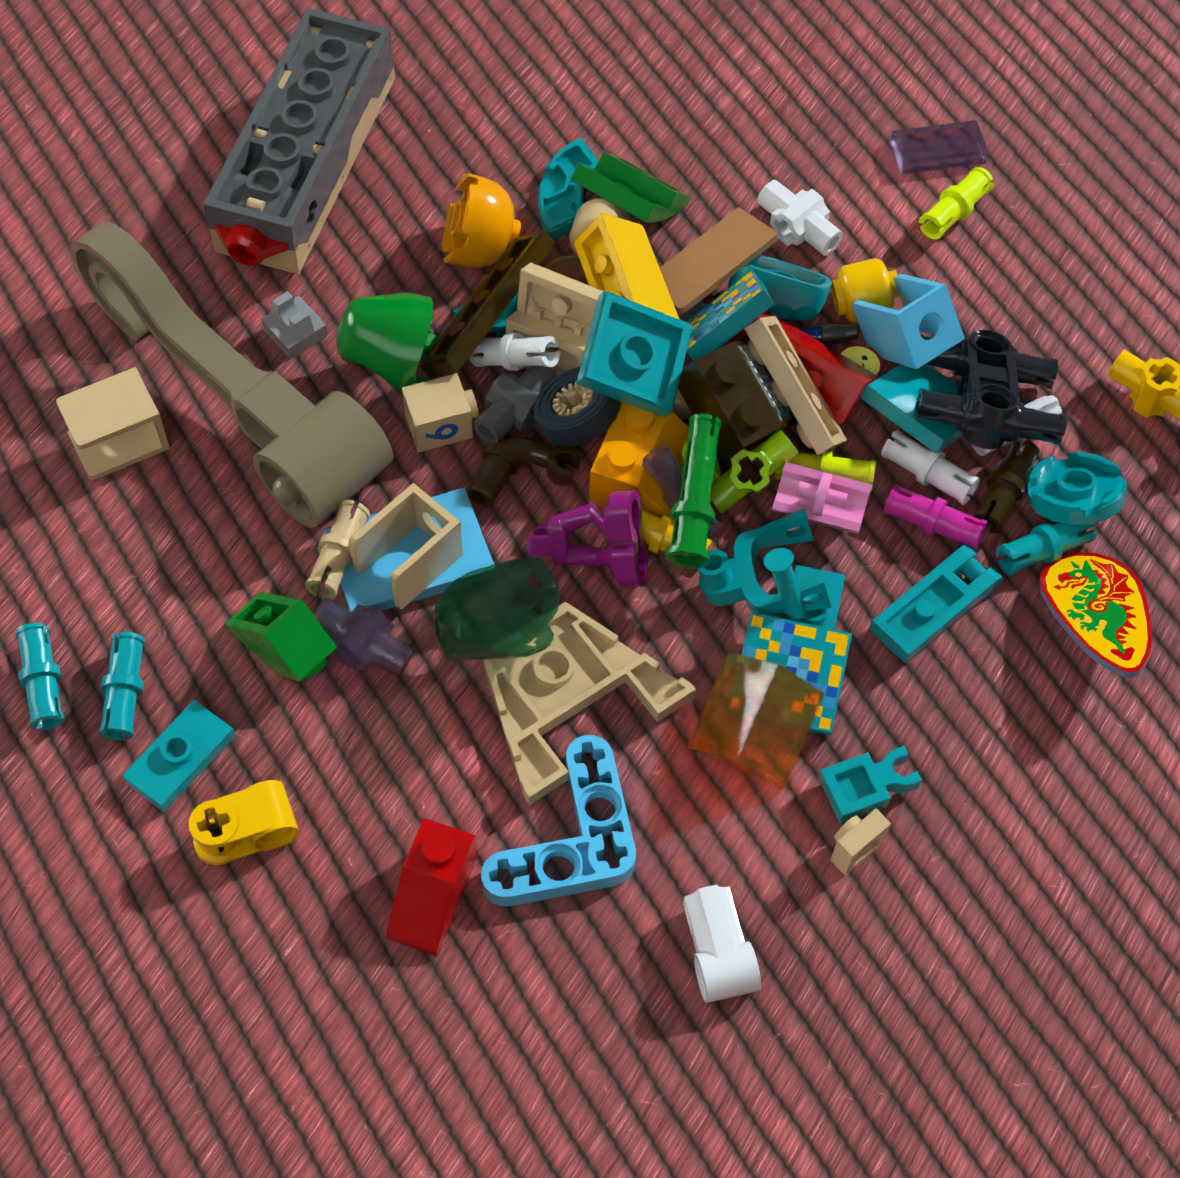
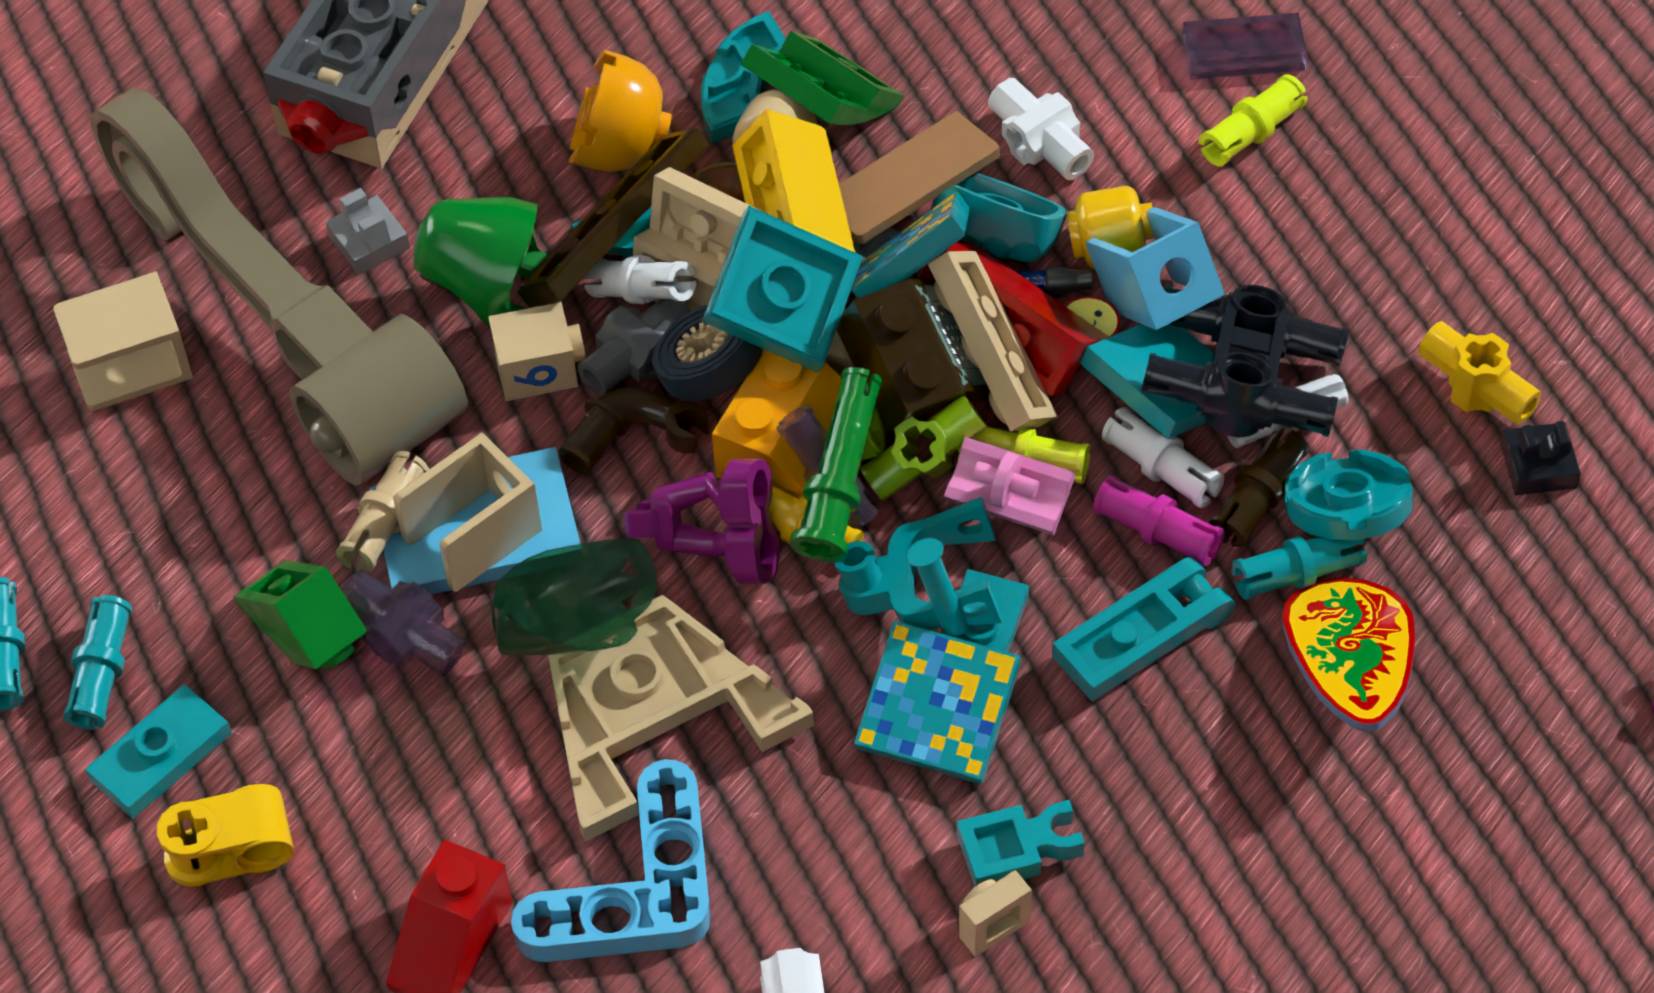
camera: 10 degrees right, 5 degrees down
(756, 718) = (886, 755): clear orange slope -> none

